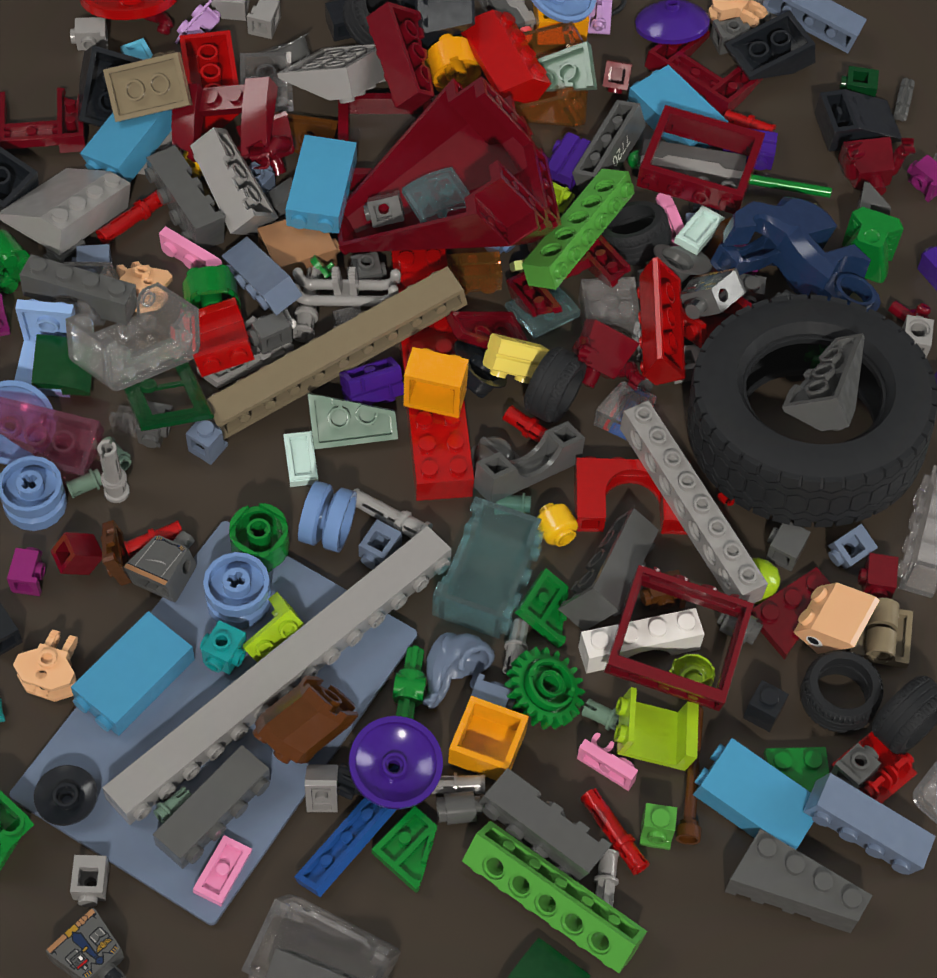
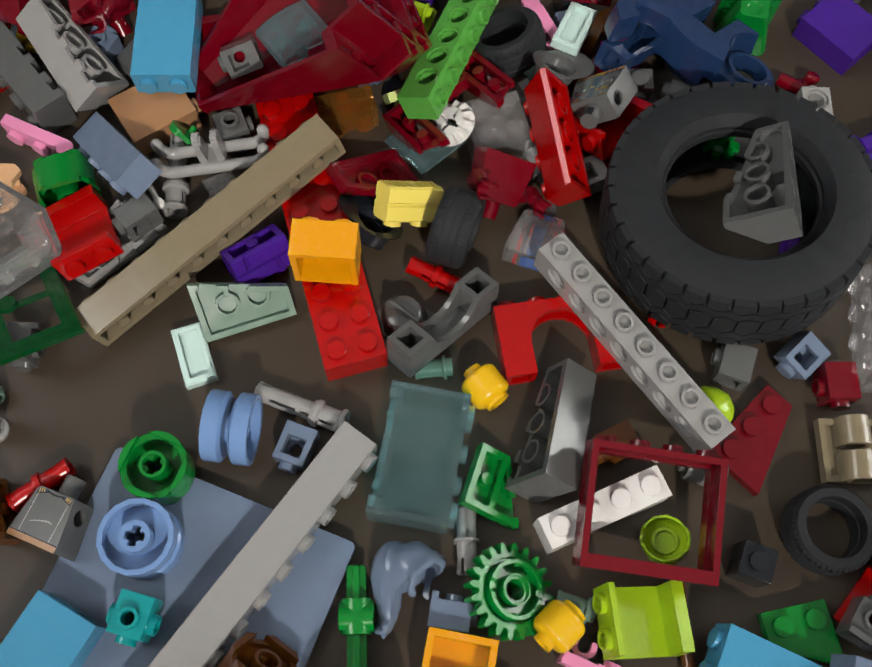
camera: 10 degrees left, 10 degrees up
(208, 436) = (84, 355): sand blue brick -> none
(276, 631) = (203, 572): lime bracket -> none
(580, 292) = (464, 118): none -> white gear
(583, 718) = (559, 626): none -> yellow head
(835, 617) = (809, 447): light nougat slope -> none

